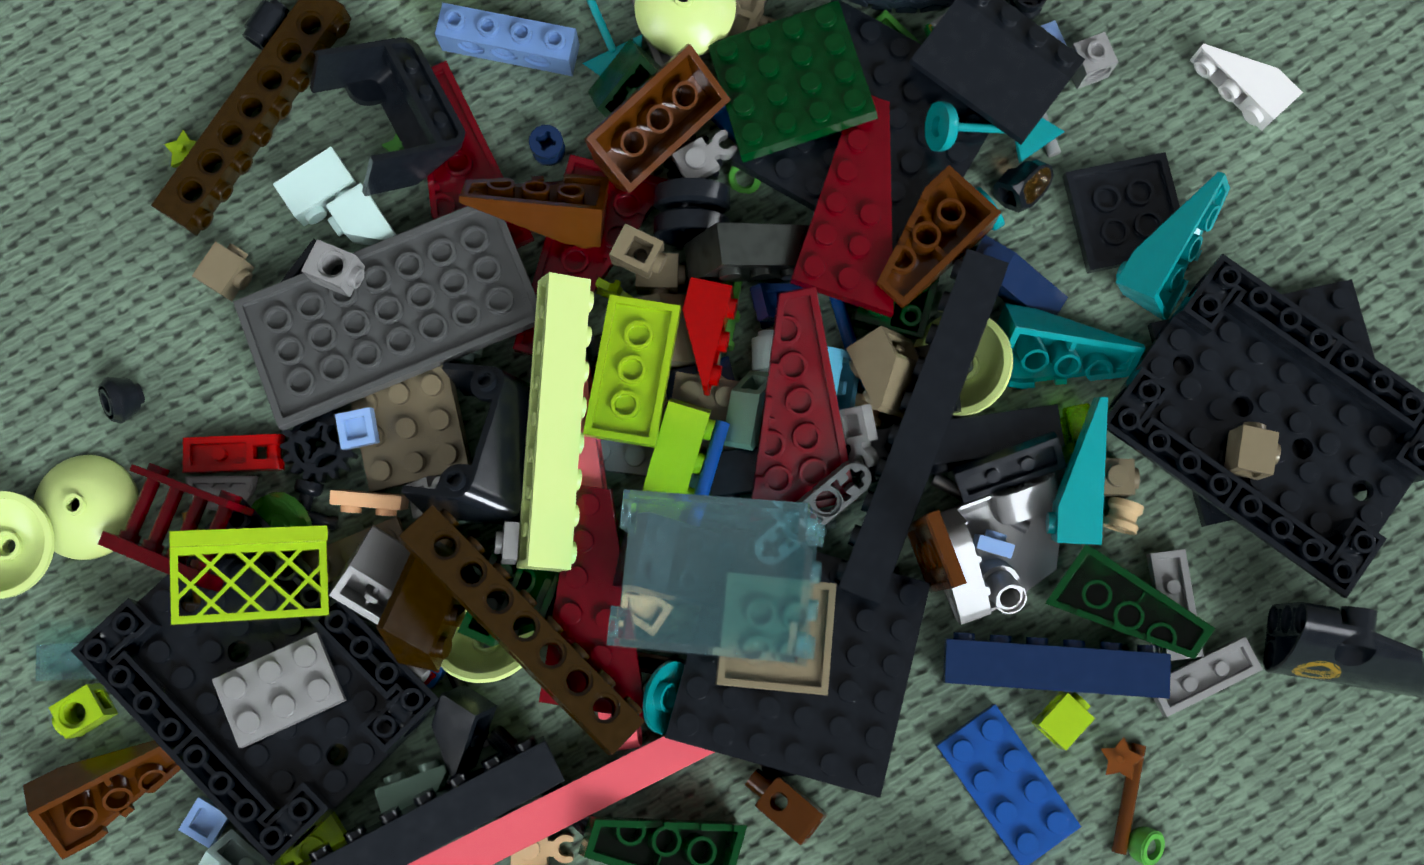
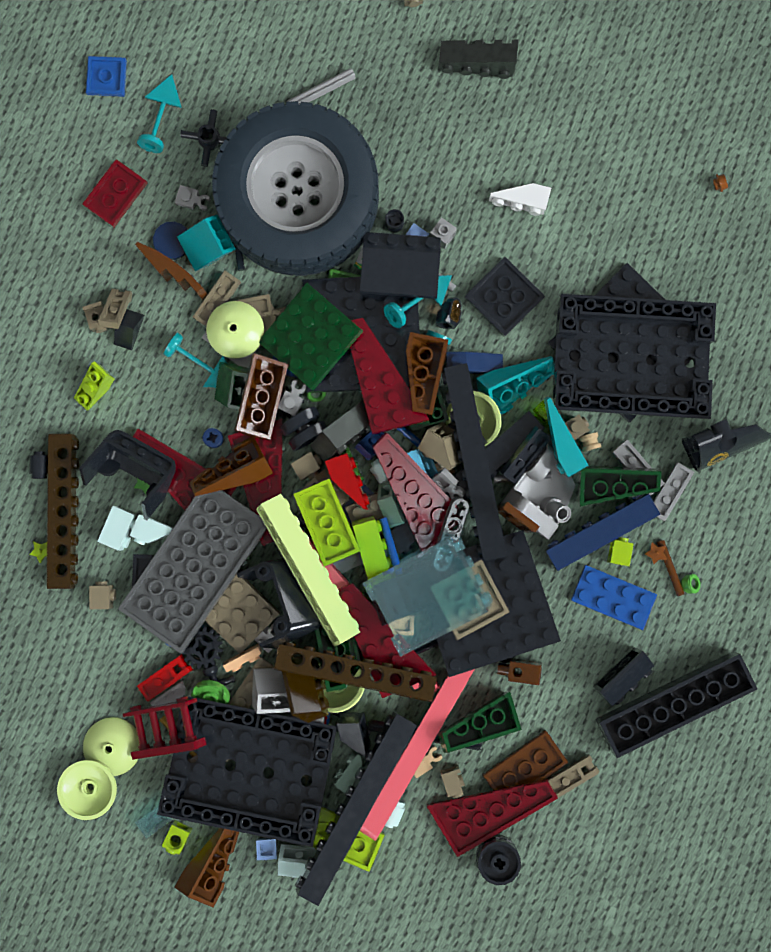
camera: 35 degrees left, 5 degrees up
(120, 398) = (94, 687): black cone -> none
(248, 541) = (202, 717): lime fence -> none
(279, 690) = (261, 769): light grey plate -> none
(322, 261) = (148, 564): light grey brick -> none
(357, 428) = (216, 629): light blue plate -> none
(507, 39) = (160, 399): medium blue brick -> none
(507, 543) = (323, 638): light grey plate -> none
(606, 288) = (291, 488): lime piece -> none
(632, 242) = (286, 461): dark tan brick -> none
(661, 695) = (435, 660): teal dish -> none
(994, 543) = (540, 493): light blue plate -> none
(1158, 265) = (535, 314): teal wedge -> none
(1252, 451) = (629, 378): dark tan brick -> none

